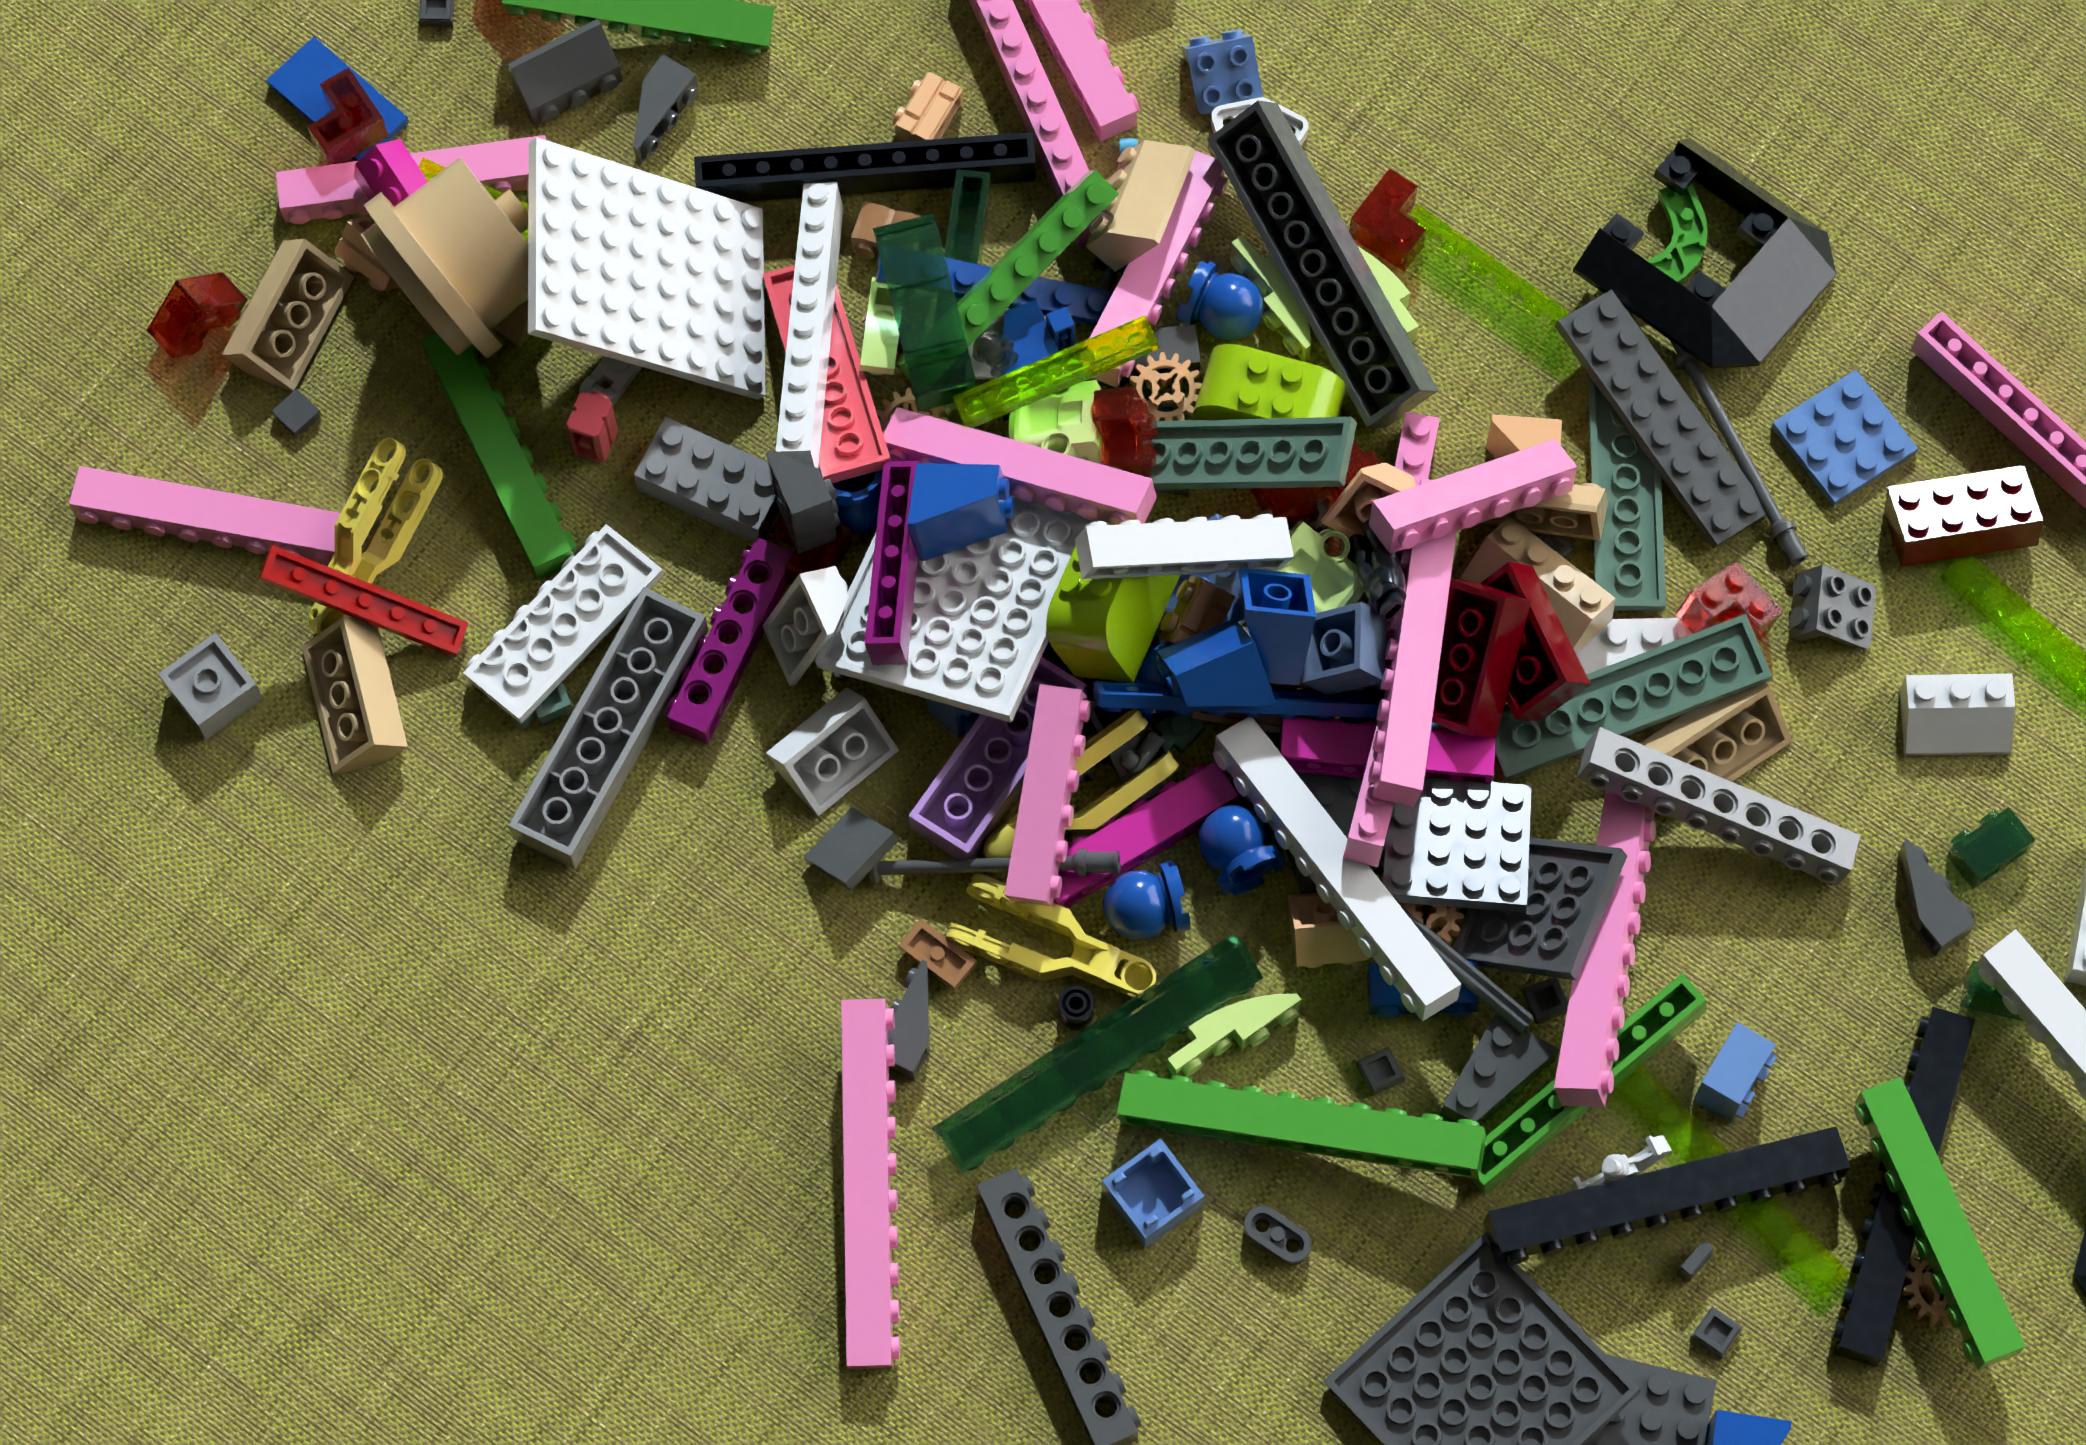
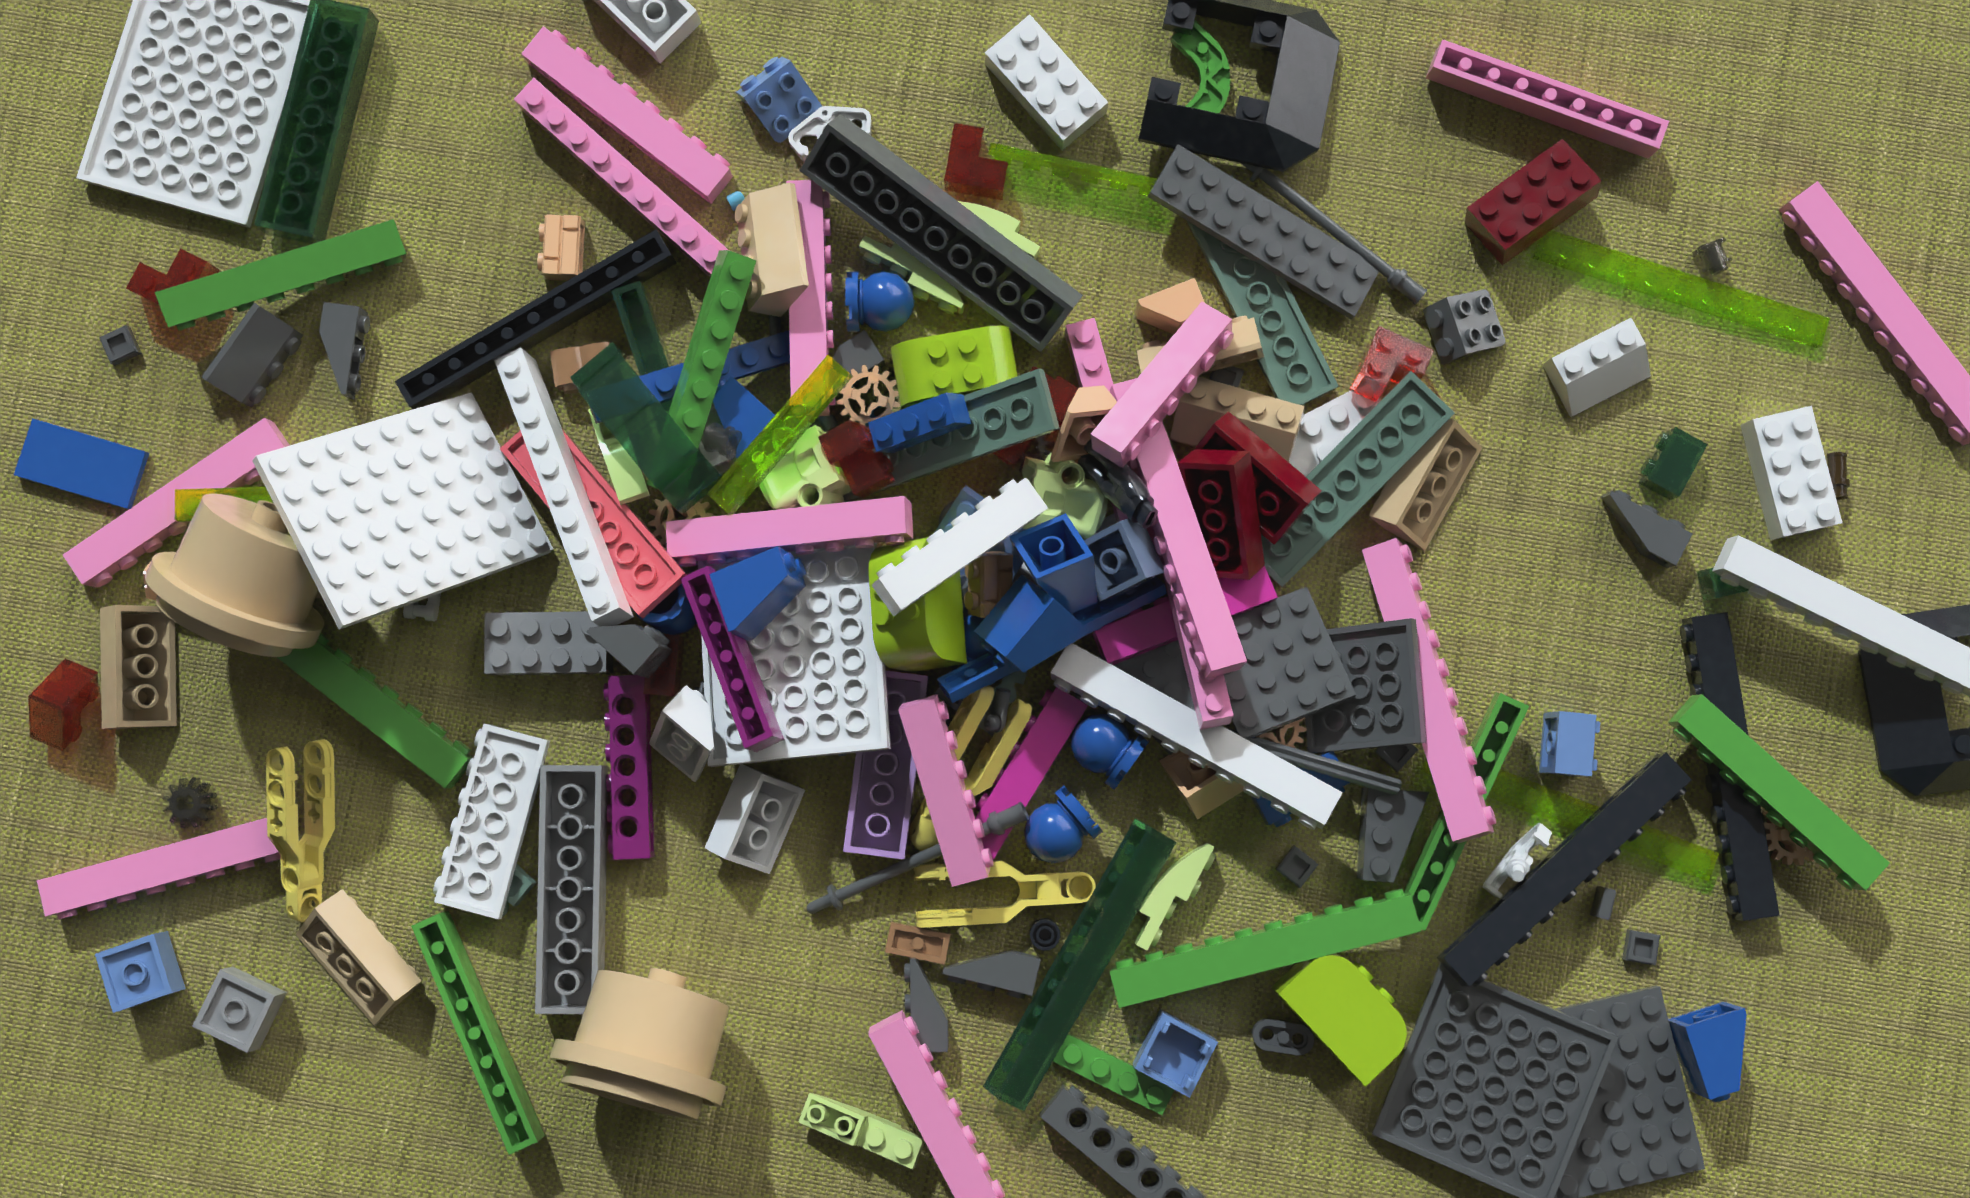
camera: 25 degrees left, 15 degrees up
(131, 602) = (140, 971): none -> medium blue container
(271, 454) = (201, 802): none -> clear smoke gear
(296, 413) = (188, 744): dark grey tile -> none
(351, 125) = (102, 486): clear red brick -> none
(363, 601) = (322, 887): red plate -> none
(388, 170) = (157, 522): dark pink slope -> none
(438, 823) = (478, 1032): none -> bright green brick
(592, 426) = (430, 646): coral brick -> none
(607, 898) = (646, 1044): none -> tan piece
(780, 1113) = (862, 1129): none -> yellowish green slope
(851, 848) = (810, 893): dark grey tile -> none
(1012, 1022) = (1005, 970): none -> dark grey slope
(1061, 328) = (764, 392): blue piece -> none
(1076, 1189) = (1113, 1074): none -> bright green plate
(1204, 425) = (919, 423): none -> blue brick
(1355, 1230) = (1345, 1013): none -> lime brick
(1505, 175) = (1046, 82): none -> white brick
(1705, 793) = (1558, 522): light grey brick -> none
(1844, 438) = (1408, 177): medium blue plate -> none

